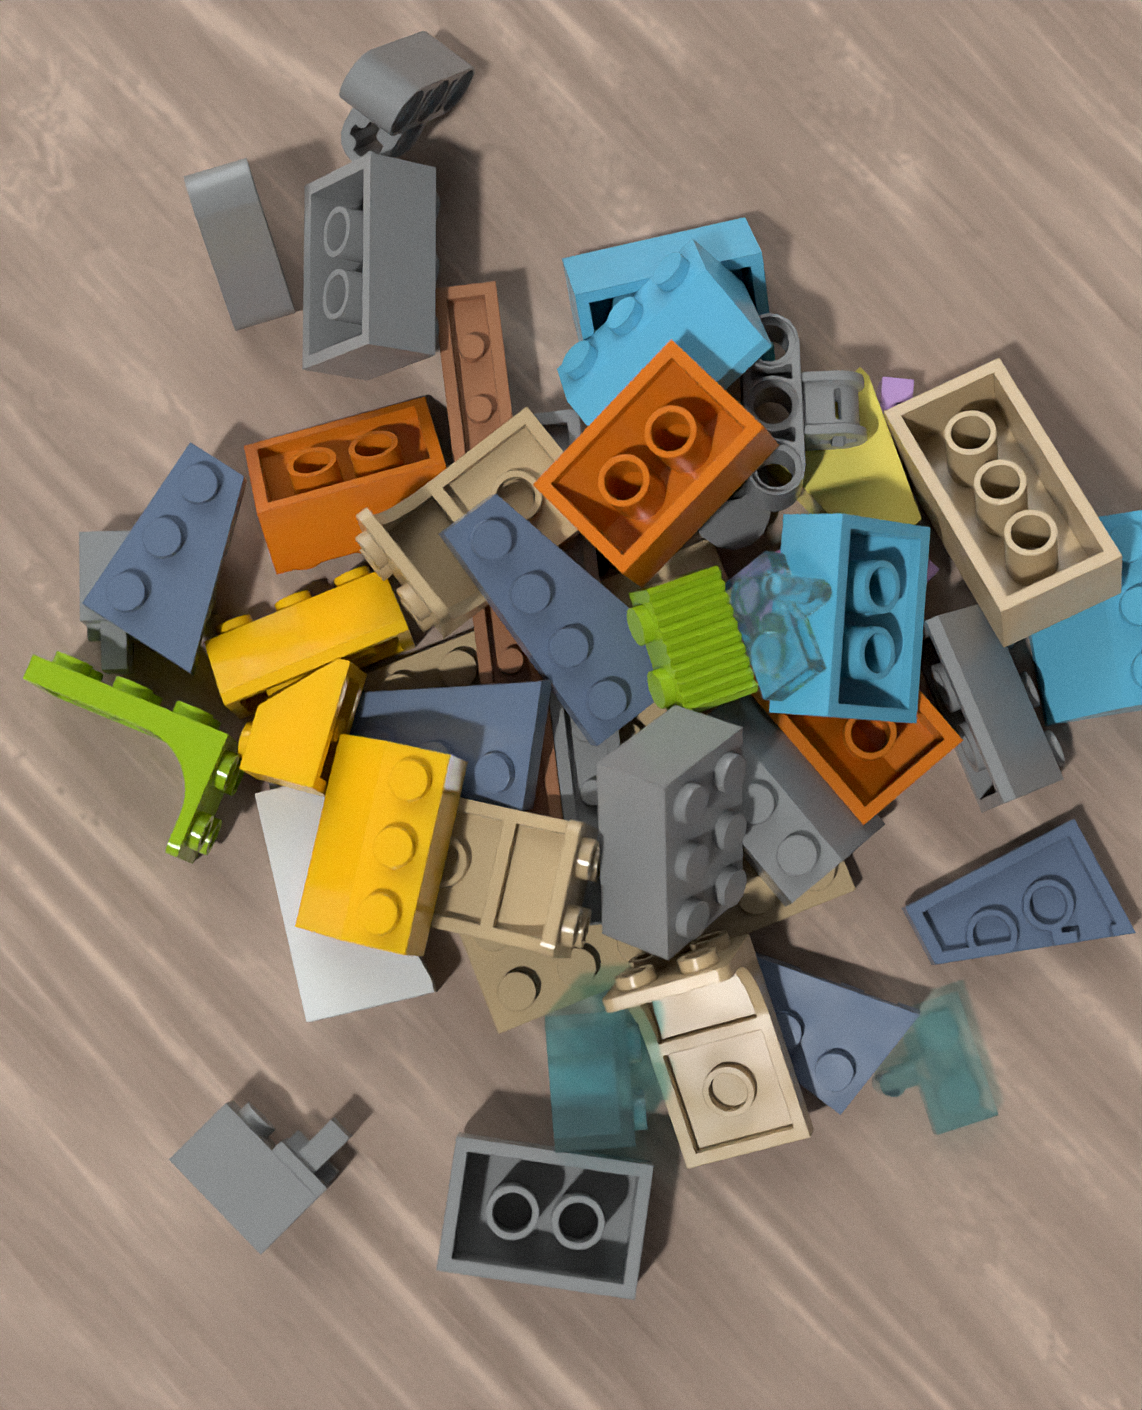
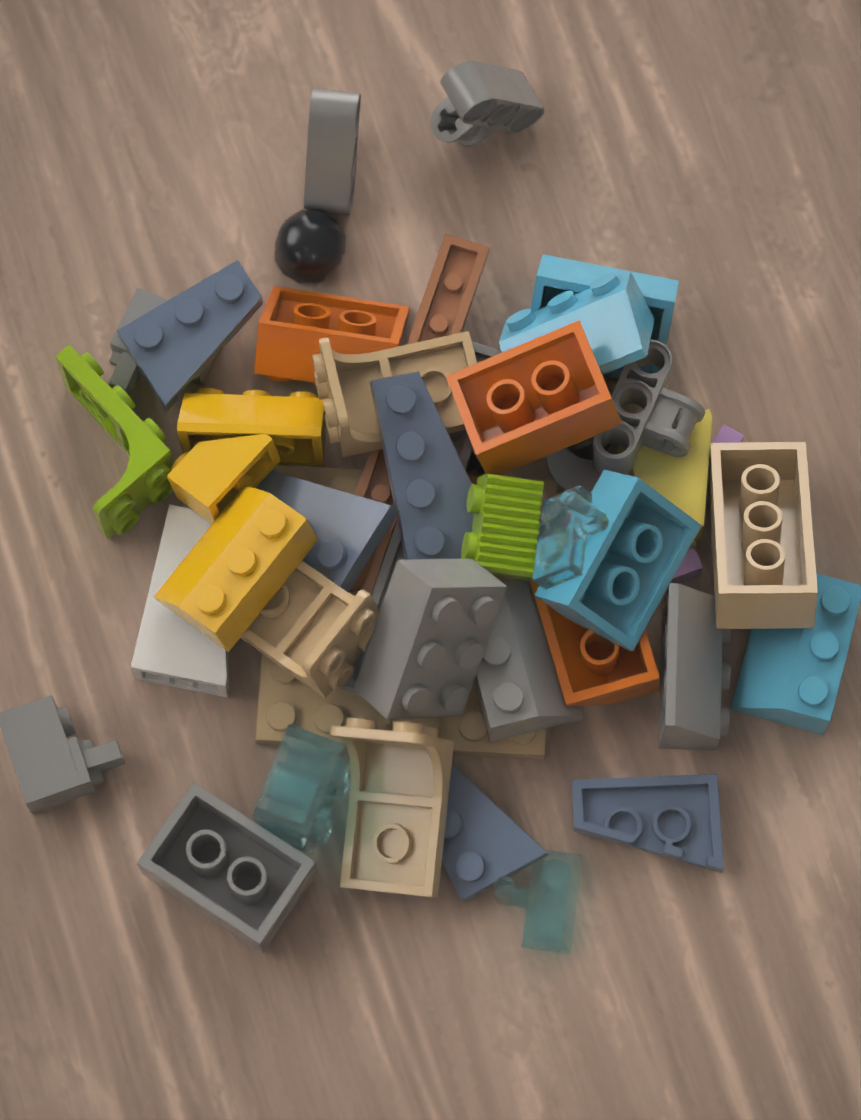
camera: 30 degrees right, 10 degrees down
(264, 375) = (309, 246): none -> black hair
(370, 268) = (410, 203): light grey brick -> none

